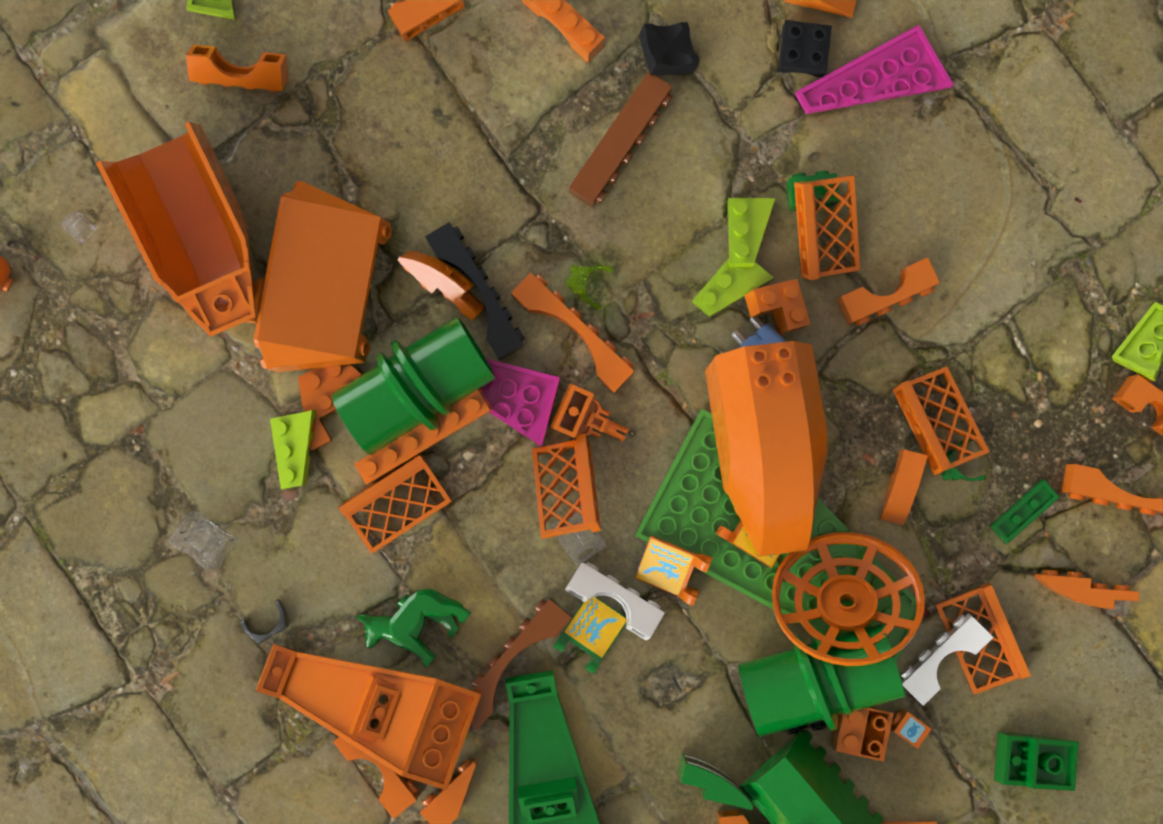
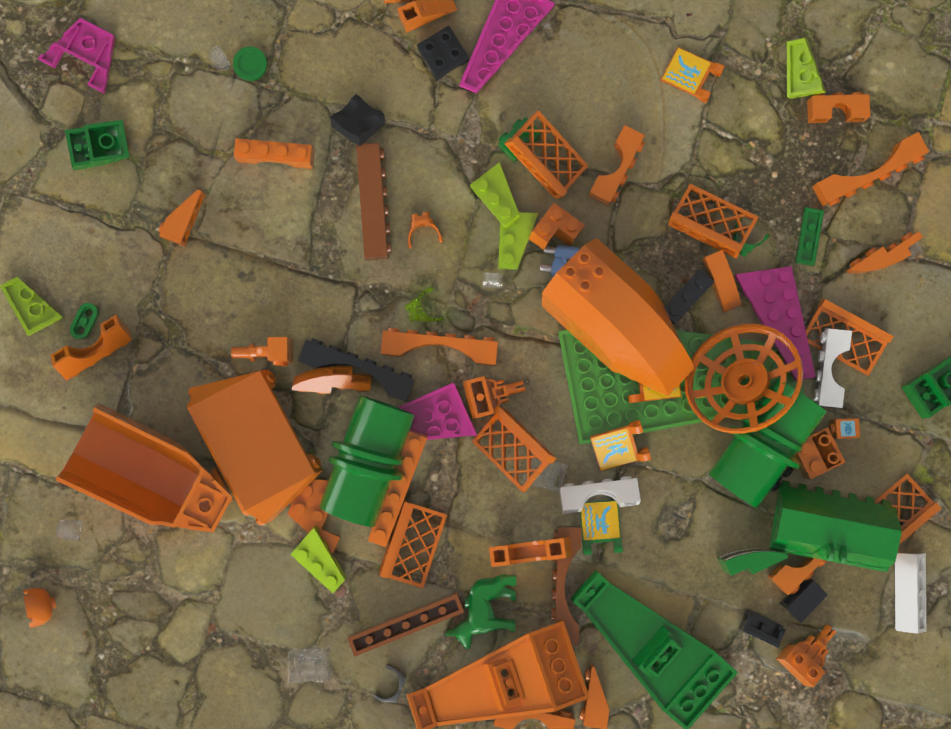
camera: 35 degrees left, 0 degrees up
(251, 35) = (85, 321): none -> green plate
(327, 574) = (405, 623): none -> dark orange brick
(413, 211) = (278, 350): none -> orange brick
(503, 601) = (530, 551): none -> orange arch
(651, 195) = (419, 221): none -> orange helmet
(676, 308) = (492, 280): none -> clear brick
(857, 474) = (688, 295): none -> black arch
(938, 554) = (778, 307): none -> dark pink wing
(1032, 258) = (690, 72): none -> flag

